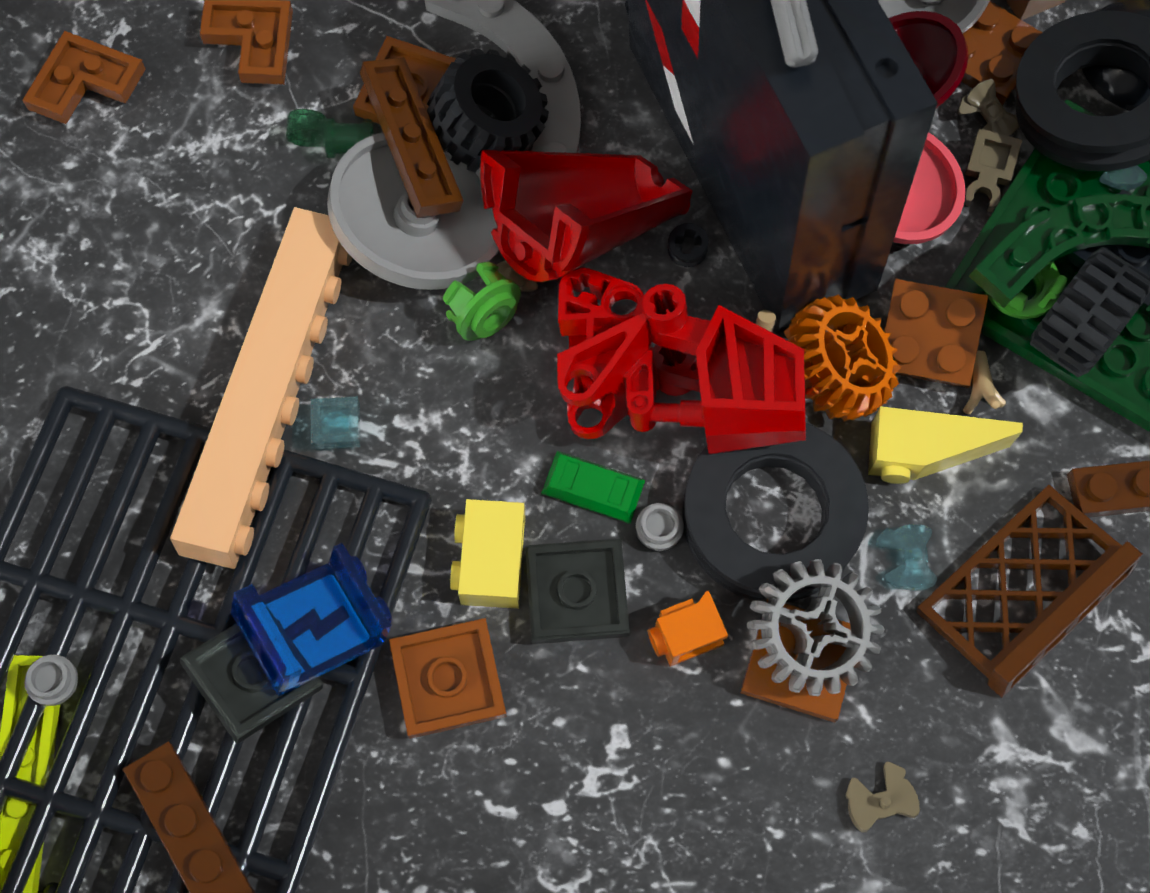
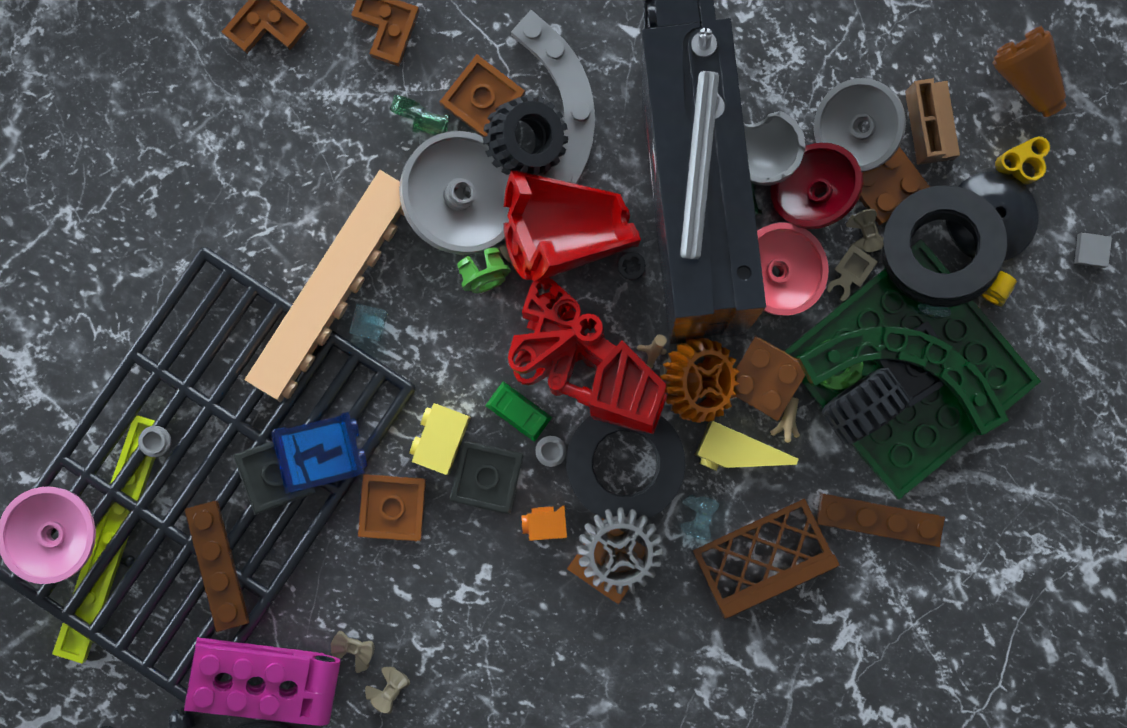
camera: 15 degrees right, 15 degrees up
(411, 137) = (468, 142): reddish brown plate -> none
(897, 799) = (639, 660): dark tan piece -> none

